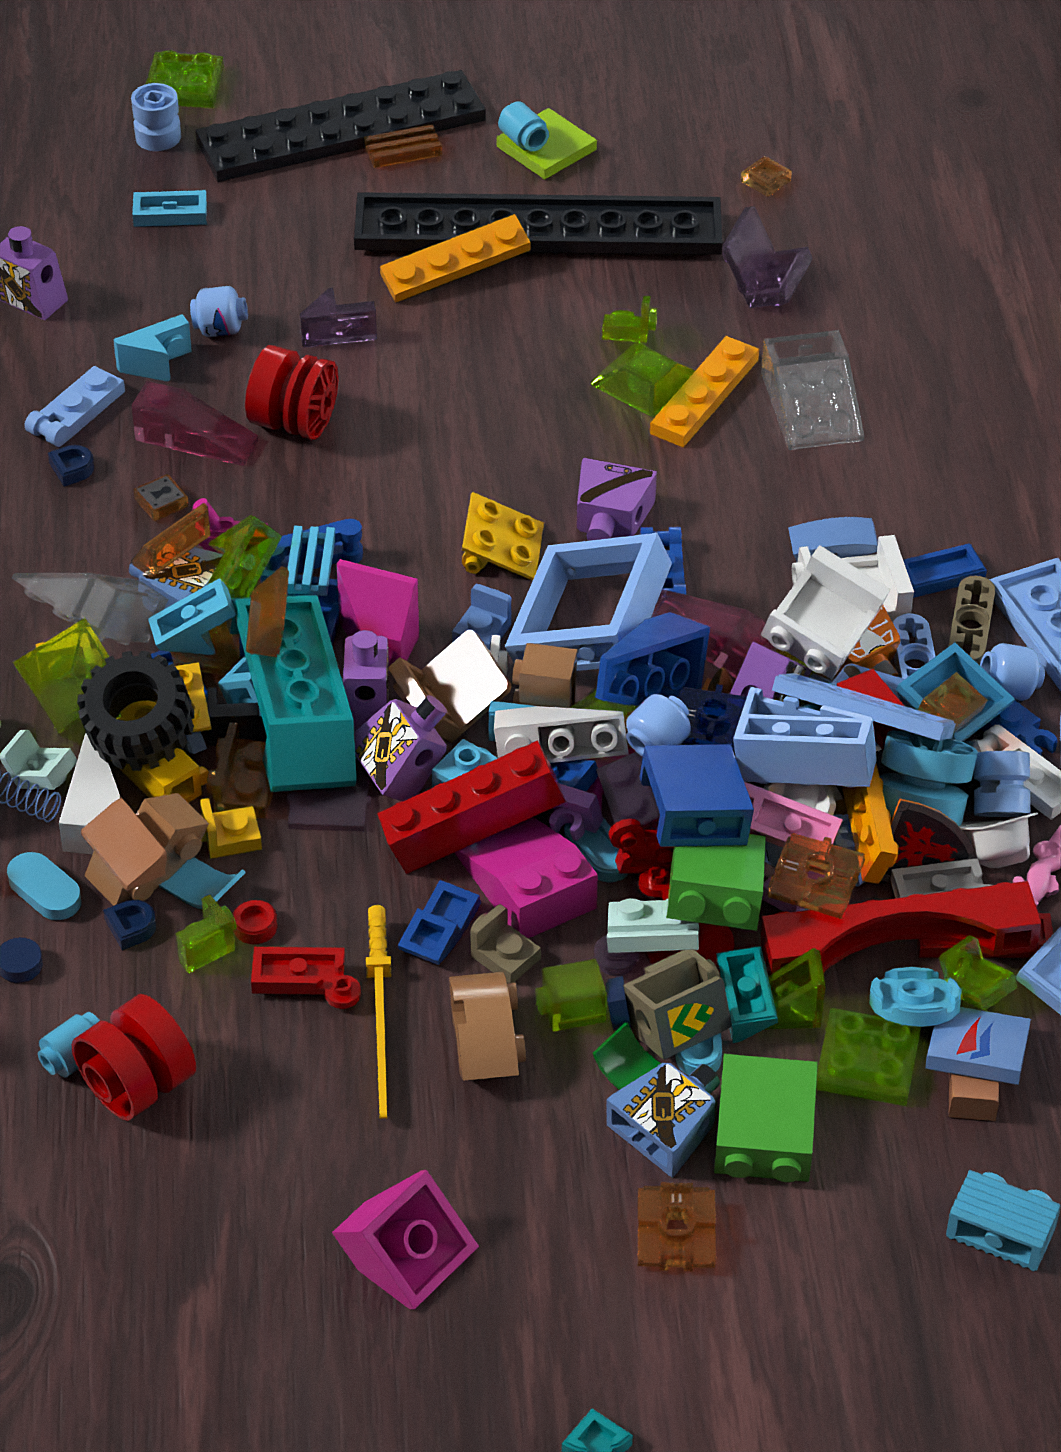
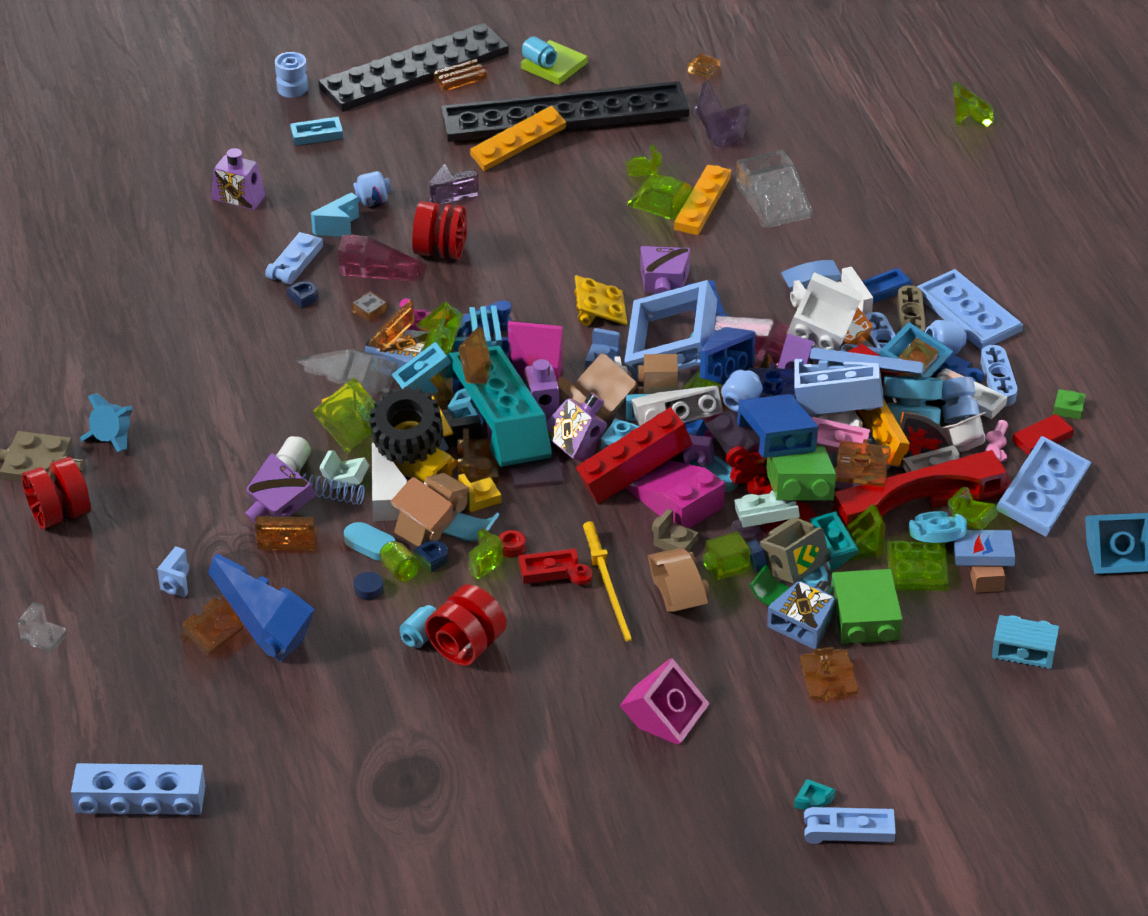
camera: 10 degrees left, 5 degrees down
(74, 927) = (399, 561): none -> clear neon green brick
(191, 75) = (307, 44): clear neon green tile -> none
(441, 923) = (629, 527): blue slope -> none

